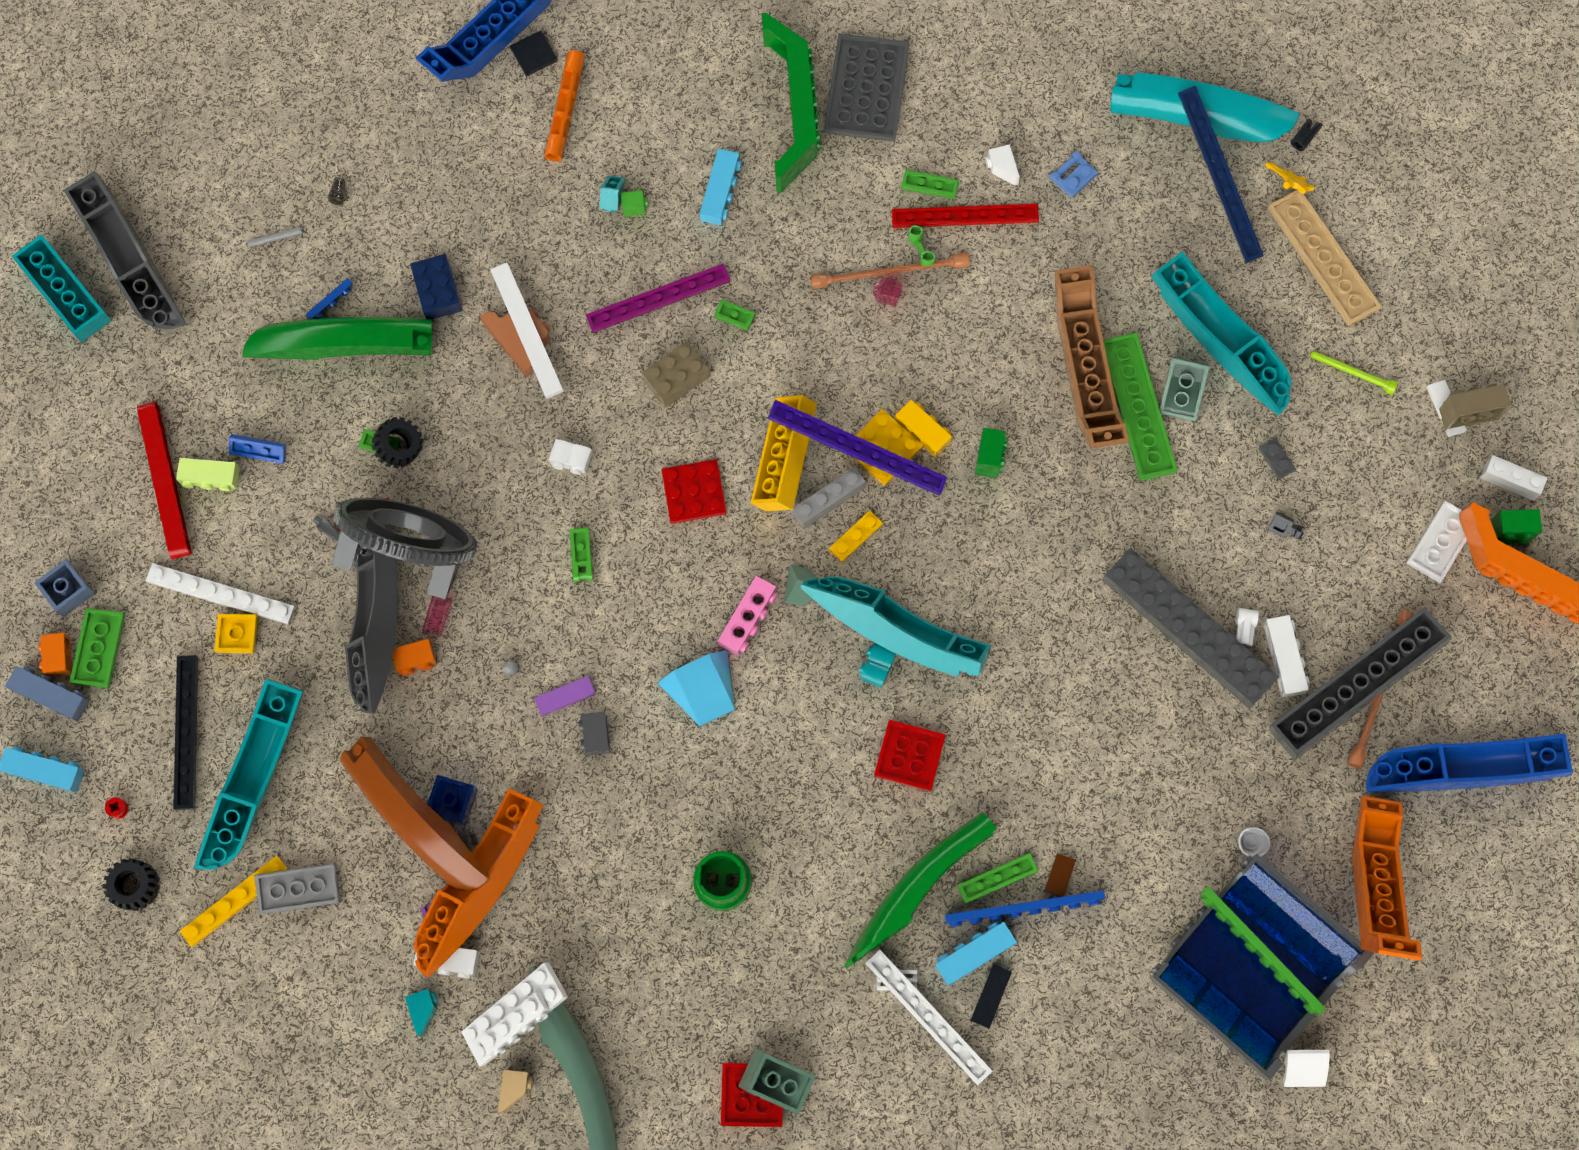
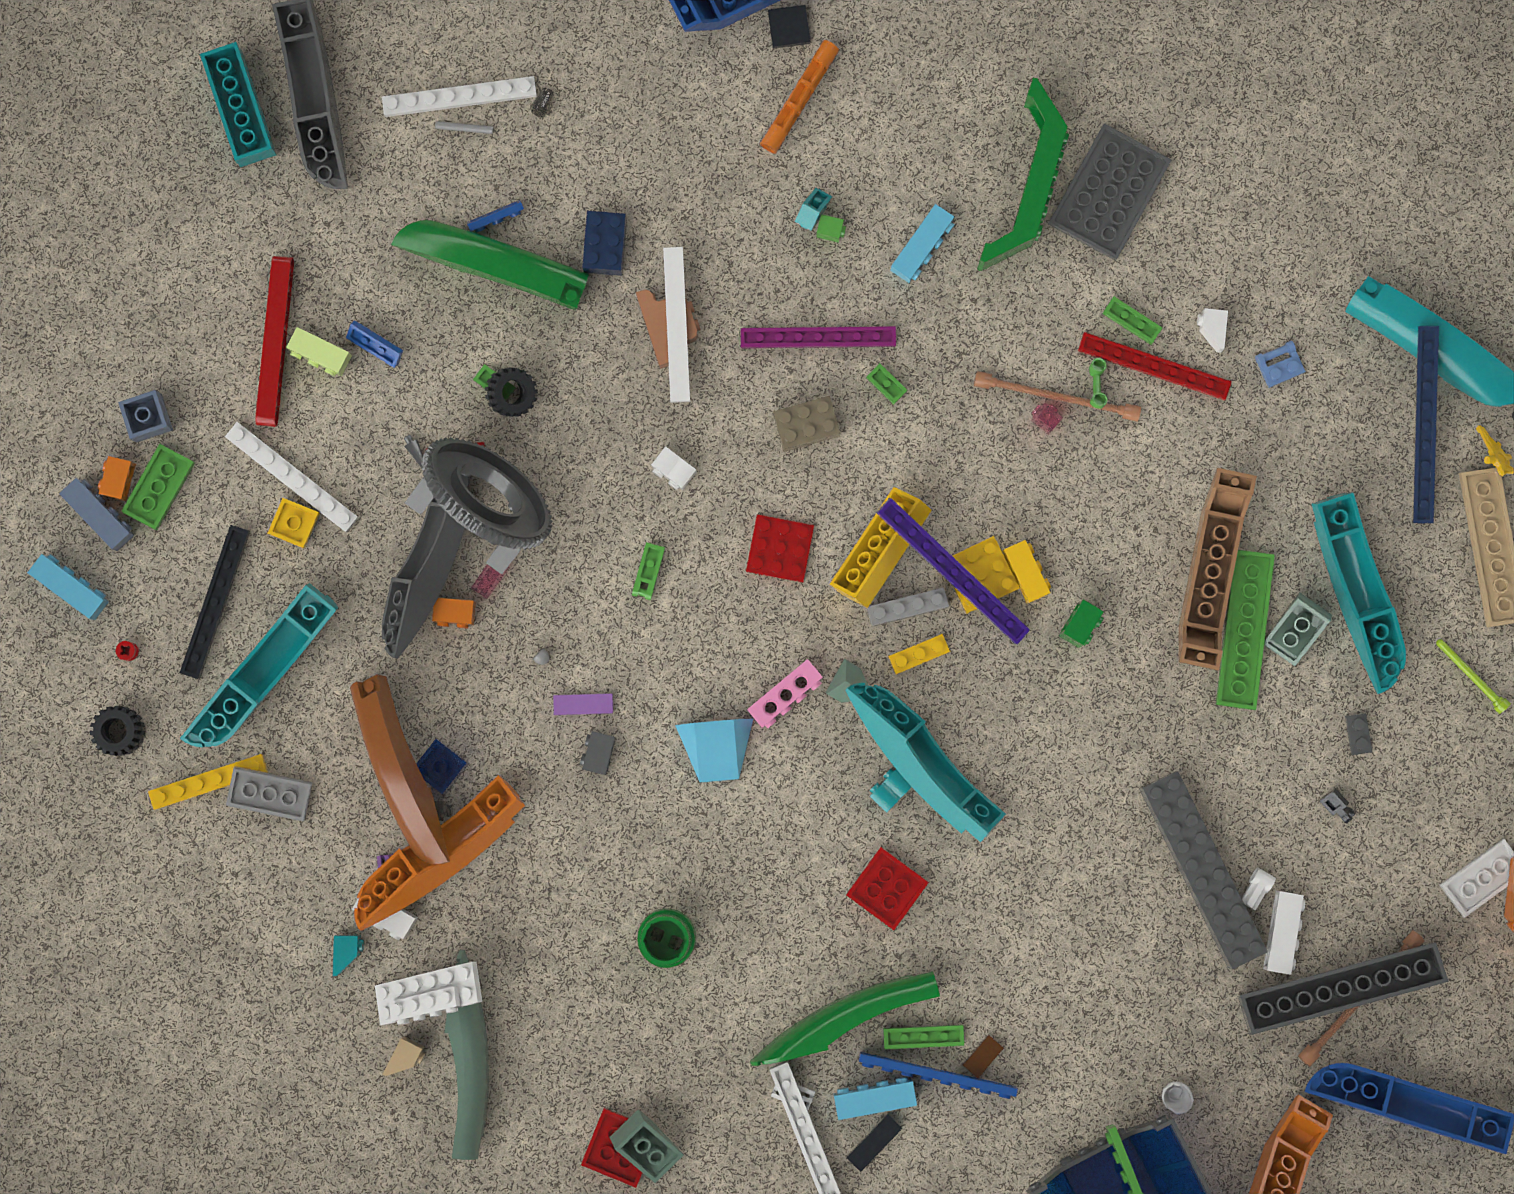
camera: 20 degrees right, 10 degrees up
(260, 213) = (459, 96): none -> white plate

